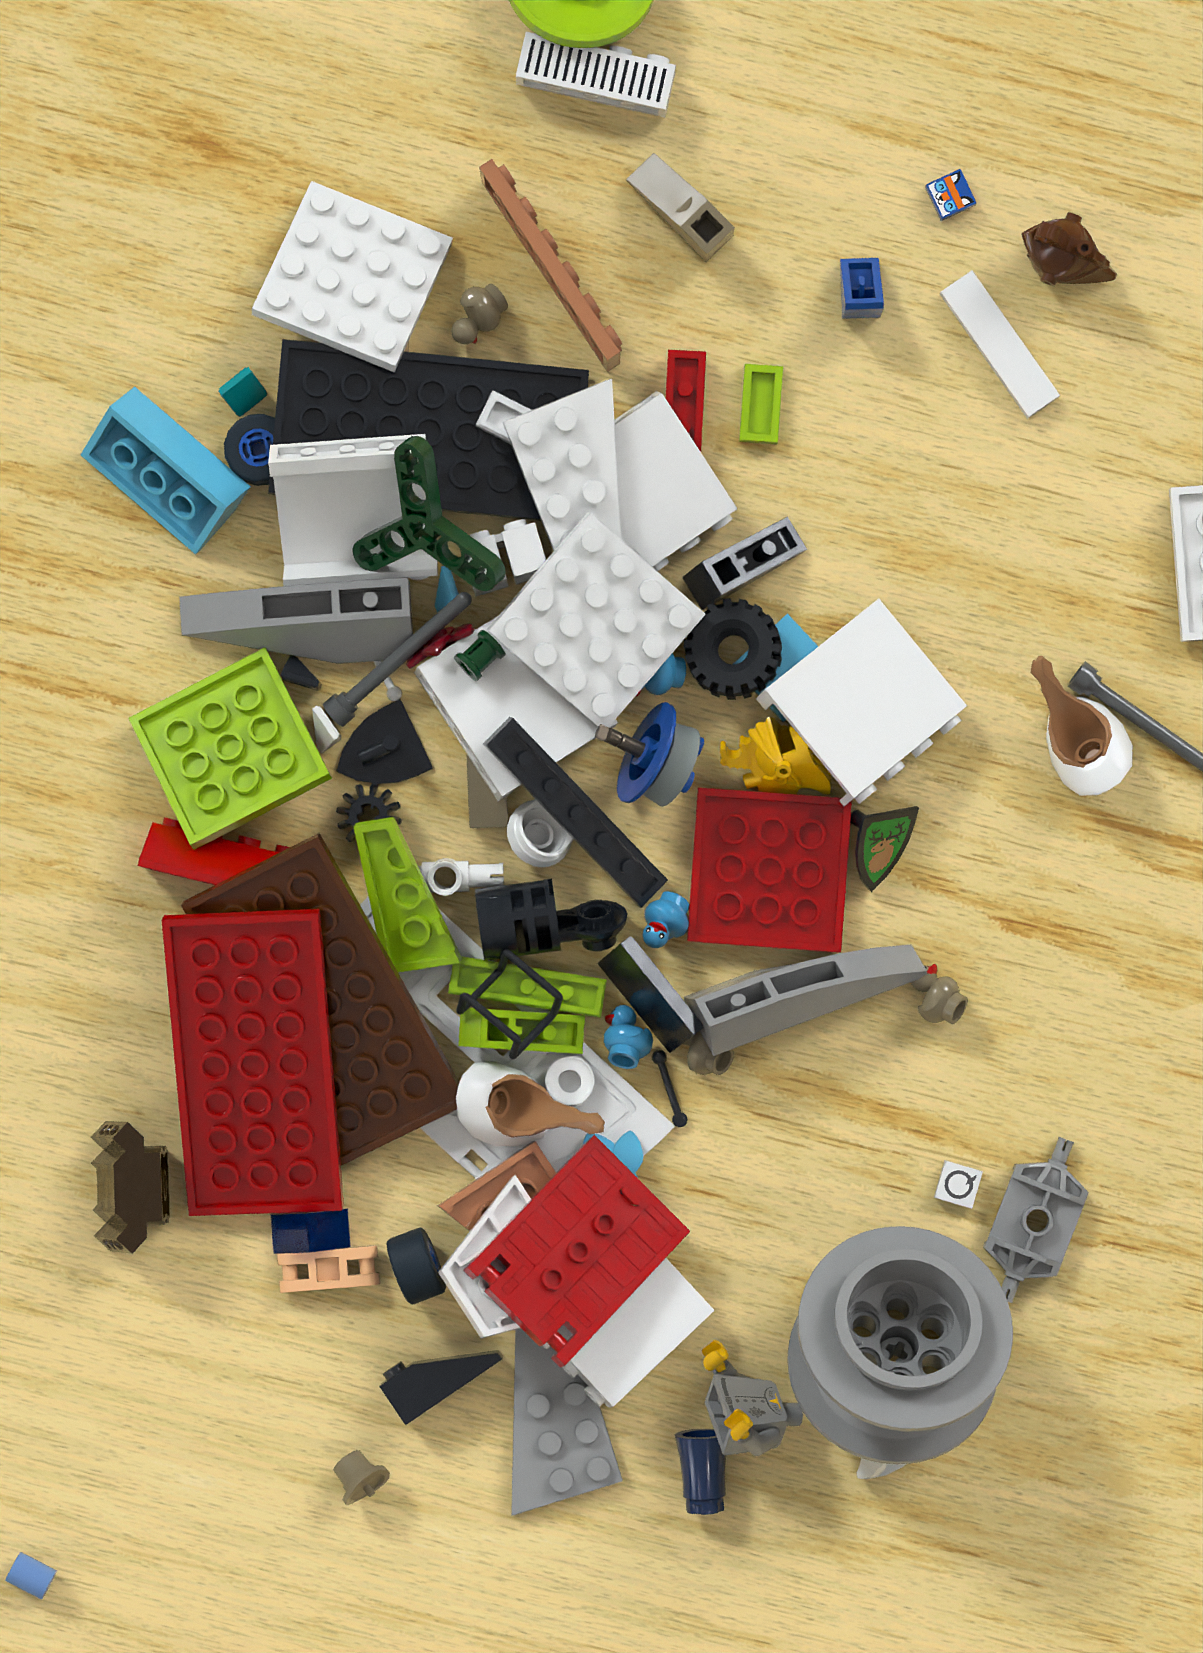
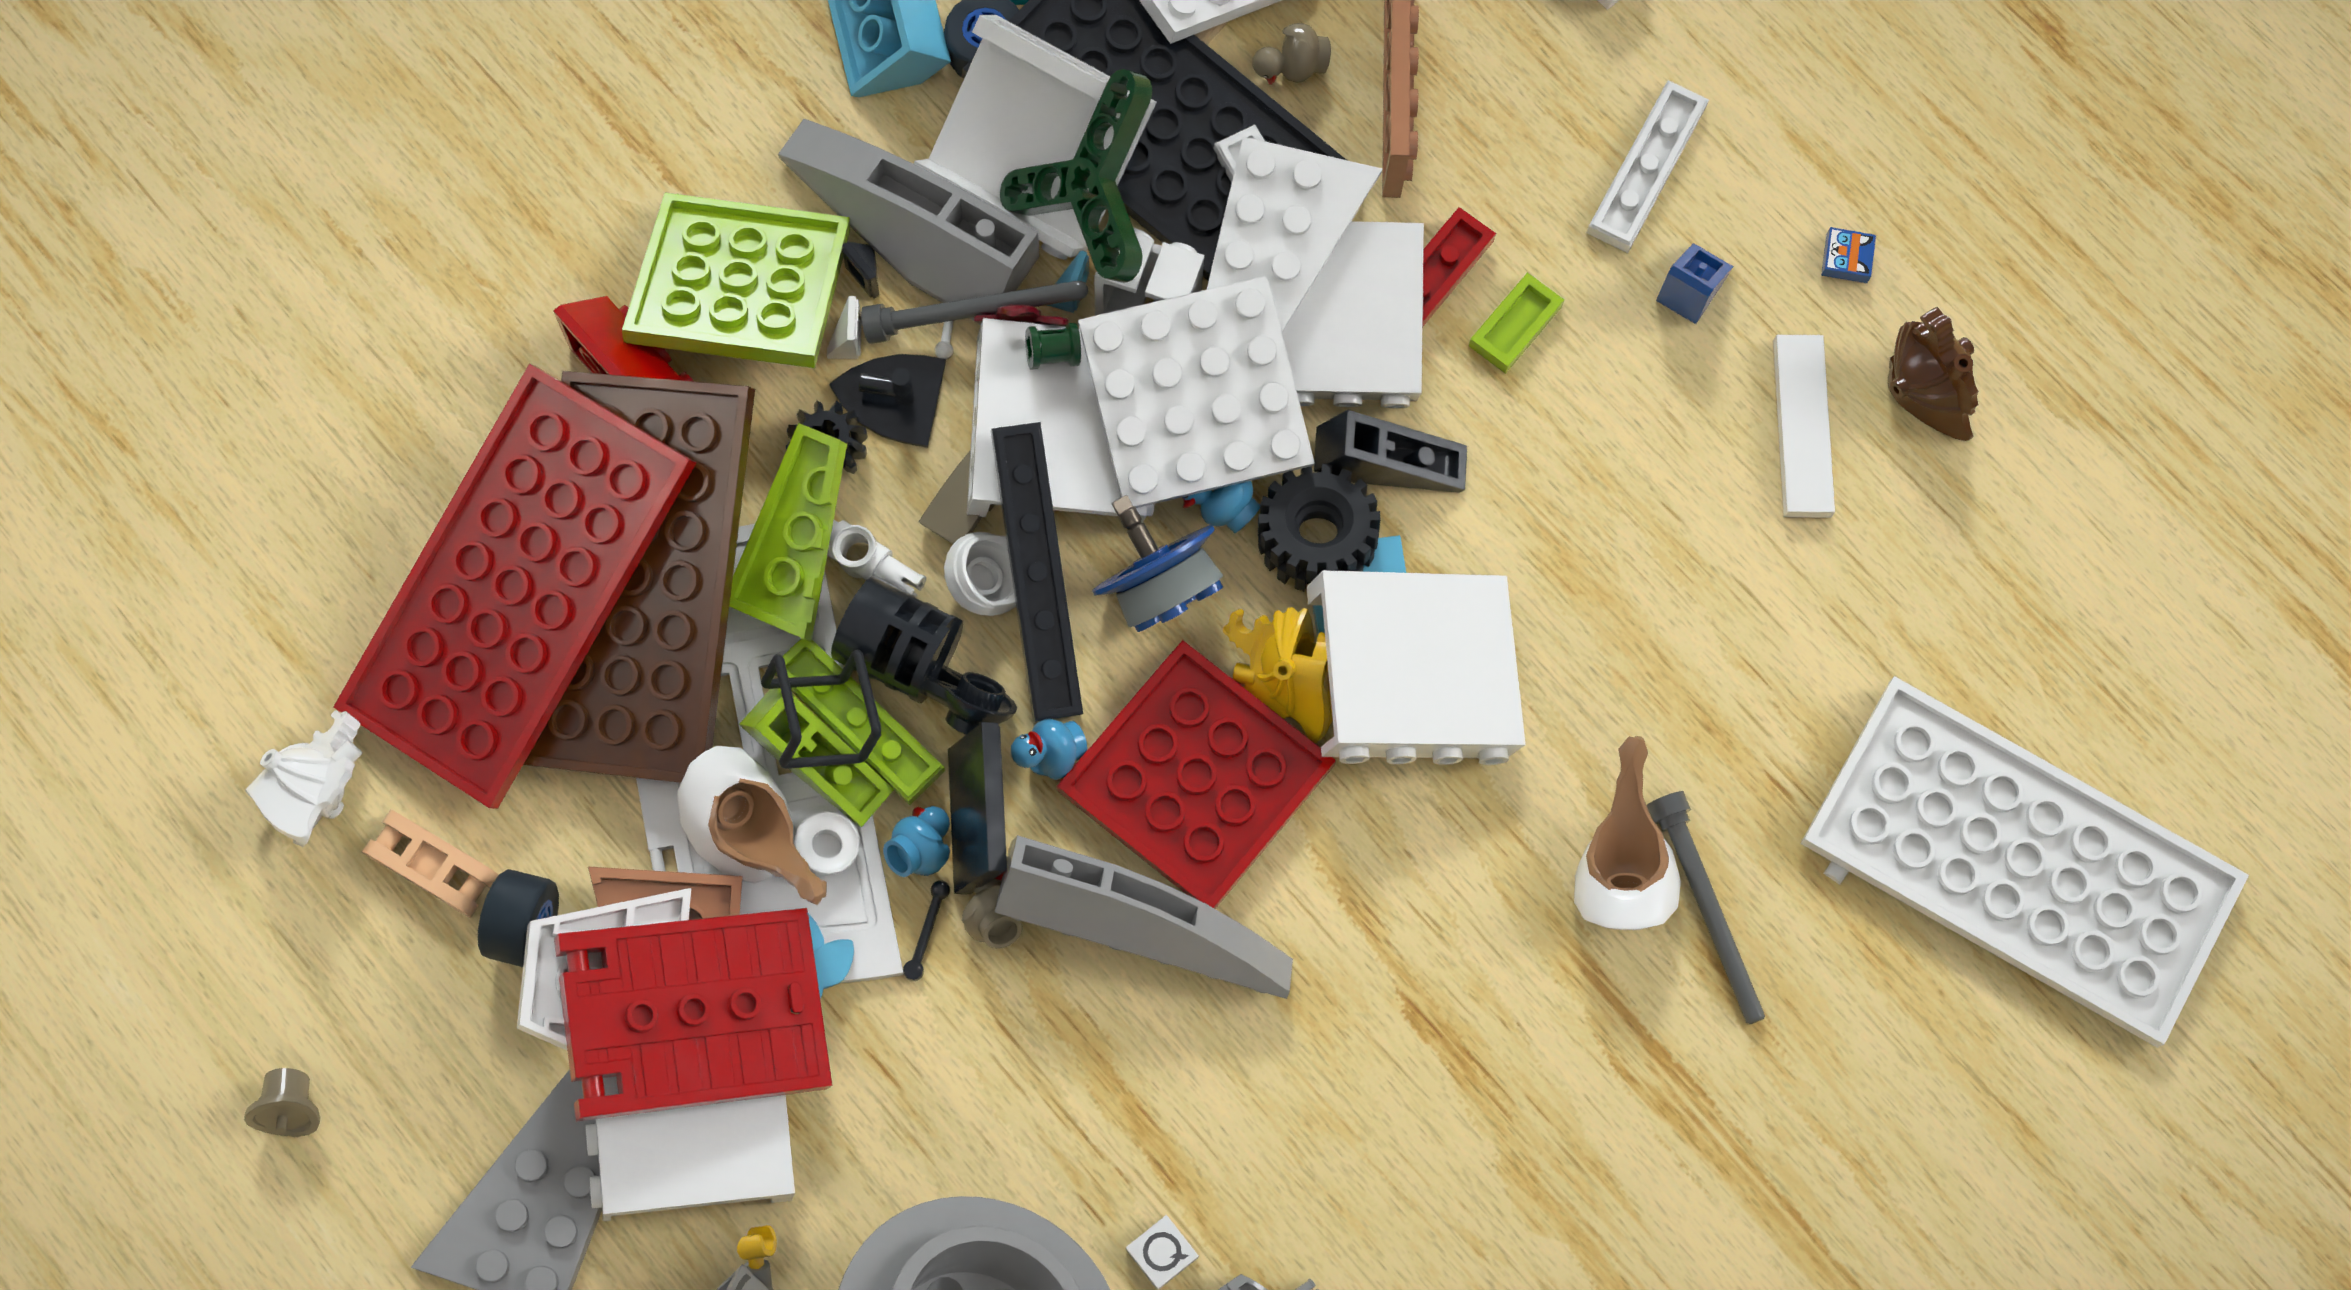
camera: 30 degrees right, 15 degrees down
(129, 1186) = (302, 634): dark brown slope -> none
(217, 1275) = (307, 779): none -> white helmet
(310, 1231) = (446, 812): clear blue slope -> none
(429, 1381) = (427, 1054): black slope -> none
(682, 207) = (1568, 93): slope -> none
(772, 222) = (1647, 166): none -> white tile
(881, 842) = (1335, 826): shield -> none
(942, 997) = (1285, 1033): dark tan animal -> none

